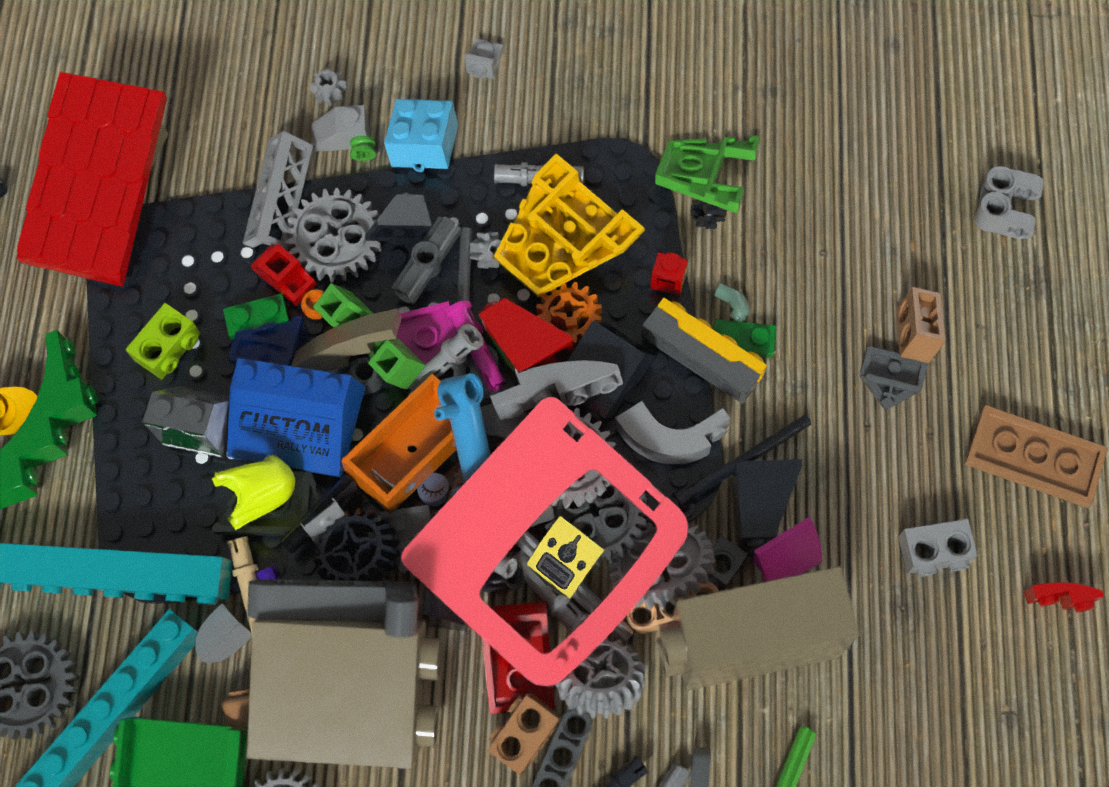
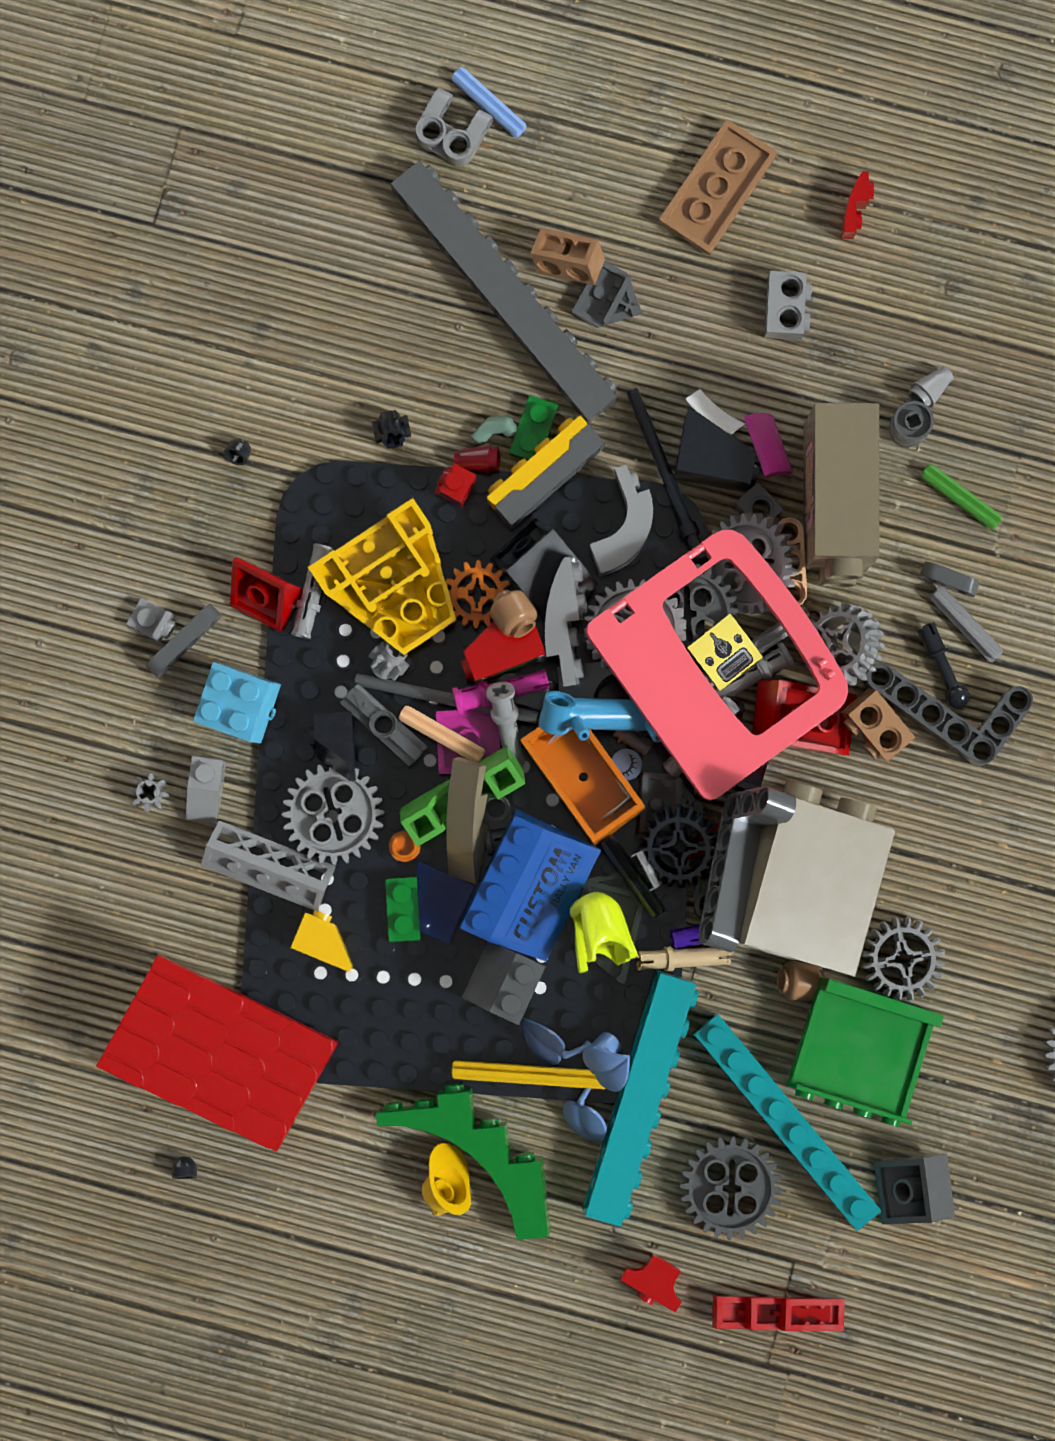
camera: 85 degrees left, 15 degrees up
(110, 461) = (525, 1074): none -> yellow axle
(137, 520) = (600, 1057): none -> medium blue plant
(157, 337) = (406, 1011): lime brick -> none
(212, 251) = (322, 940): none -> yellow slope
(220, 636) = (723, 994): light grey brick -> none
(284, 273) = (365, 873): red brick -> none
(362, 148) = (232, 769): bright green bush -> none
(425, 308) = (441, 734): none -> light nougat axle
(471, 85) = (183, 640): none -> dark grey beam
(529, 134) = (262, 594): none -> red slope
(549, 328) = (513, 613): none -> medium nougat head
(654, 93) = (237, 451): none -> black hinge
(694, 166) = (339, 432): bright green wing -> none
(701, 294) = (479, 459): none -> dark red cone
(807, 492) = (708, 409): none -> white sticker
(852, 701) = (911, 424): none -> dark grey wheel
(865, 282) = (503, 291): none -> dark grey brick
(896, 715) = (931, 386): none -> light grey cone
(1045, 231) = (488, 102): none -> light blue axle

